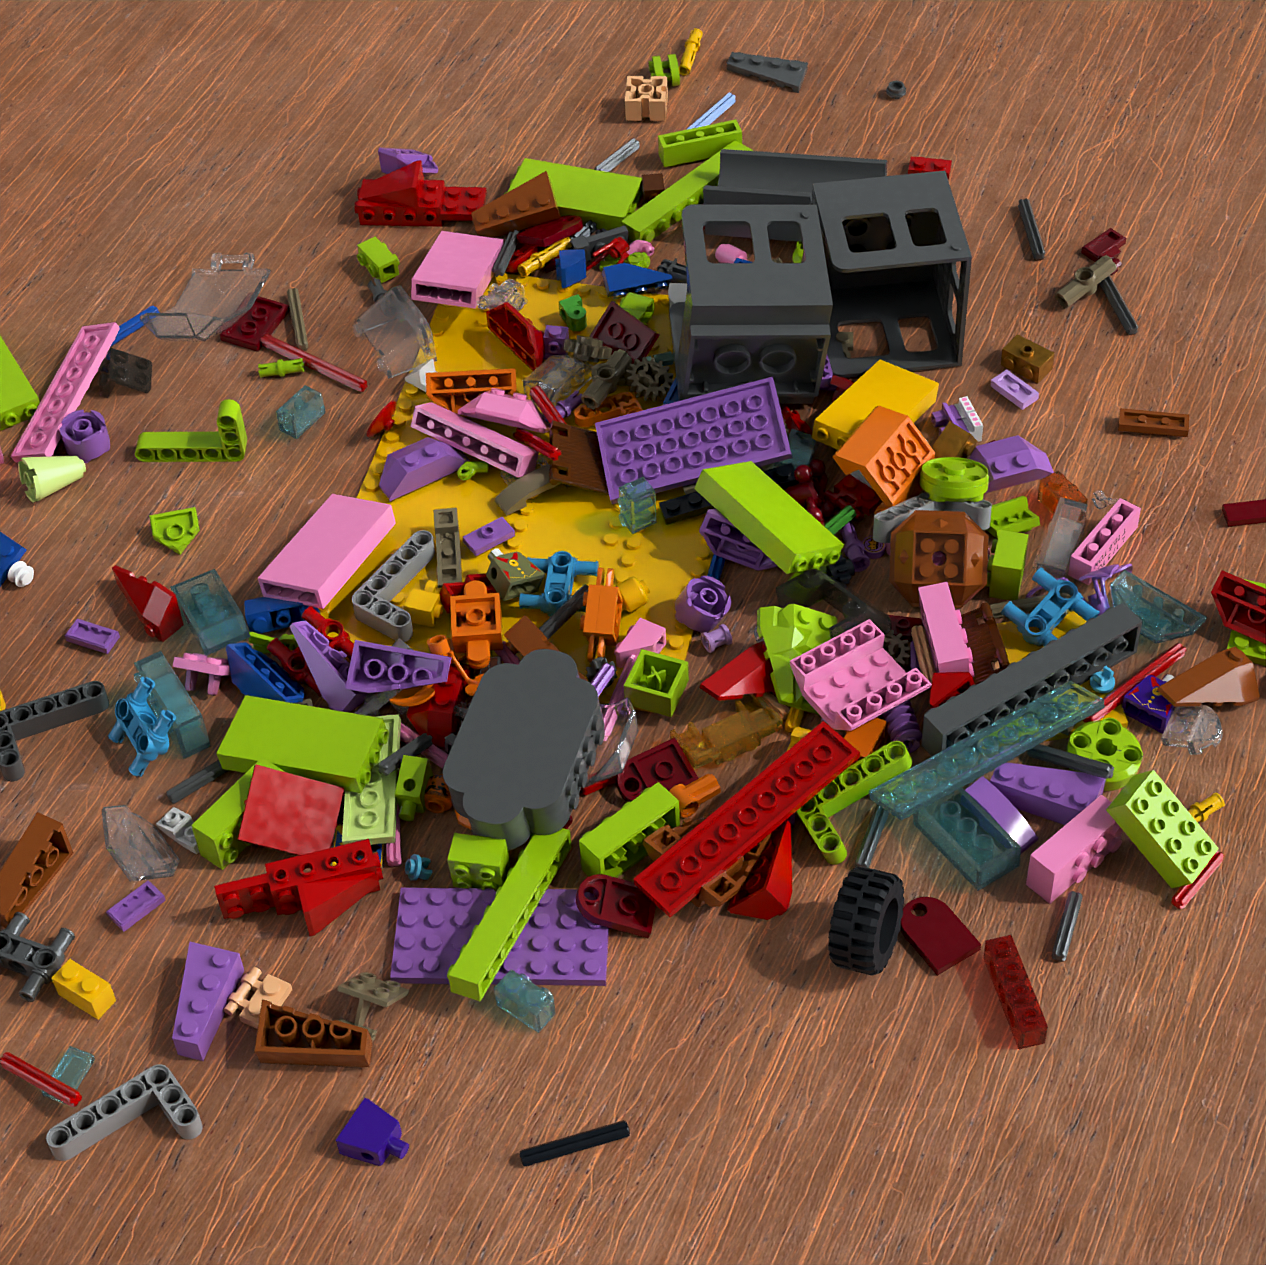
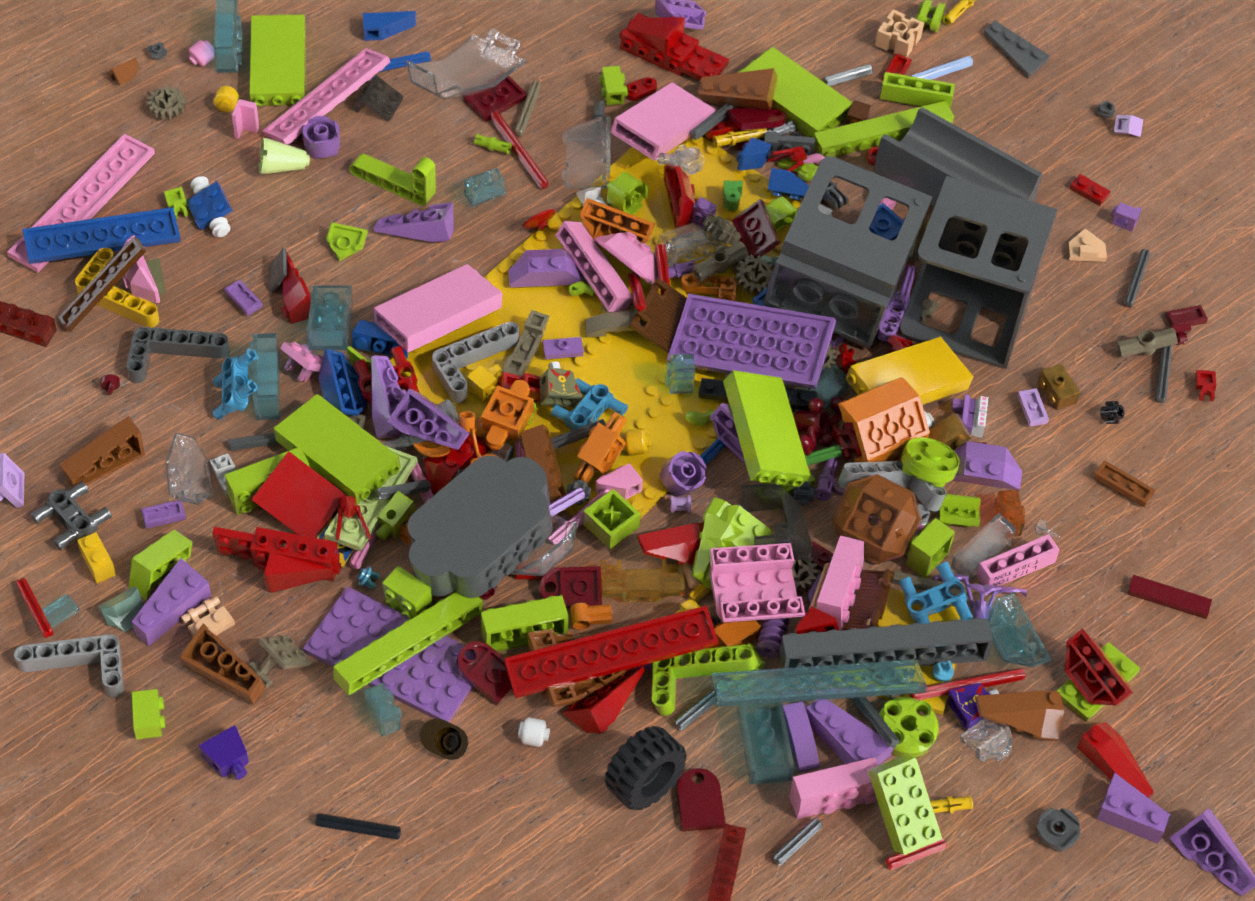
camera: 20 degrees right, 5 degrees up
(88, 297) = (386, 24): none -> blue slope
(117, 590) = (278, 270): none -> dark grey piece
(150, 1033) = (122, 609): none -> sand green slope
(161, 960) = (157, 561): none -> lime wedge
(251, 1135) = (147, 714): none -> lime brick
(261, 475) = (427, 225): none -> medium lavender wedge
(356, 801) = (348, 509): none -> red plant
(409, 252) = (641, 88): none -> red plate
(462, 352) = (626, 193): none -> lime brick
(617, 998) = (444, 739): none -> dark brown piece
(661, 127) = (898, 65): none -> red tile
(682, 544) = (698, 418): none -> lime arm
(711, 945) = (533, 732): none -> white head
(927, 94) = (1128, 125): none -> lavender panel
(972, 220) = (1087, 248): none -> light nougat plate
(982, 177) = (1125, 216): none -> medium lavender brick
(1096, 360) = (1112, 412): none -> black gear
(1166, 295) = (1206, 382): none -> red plate

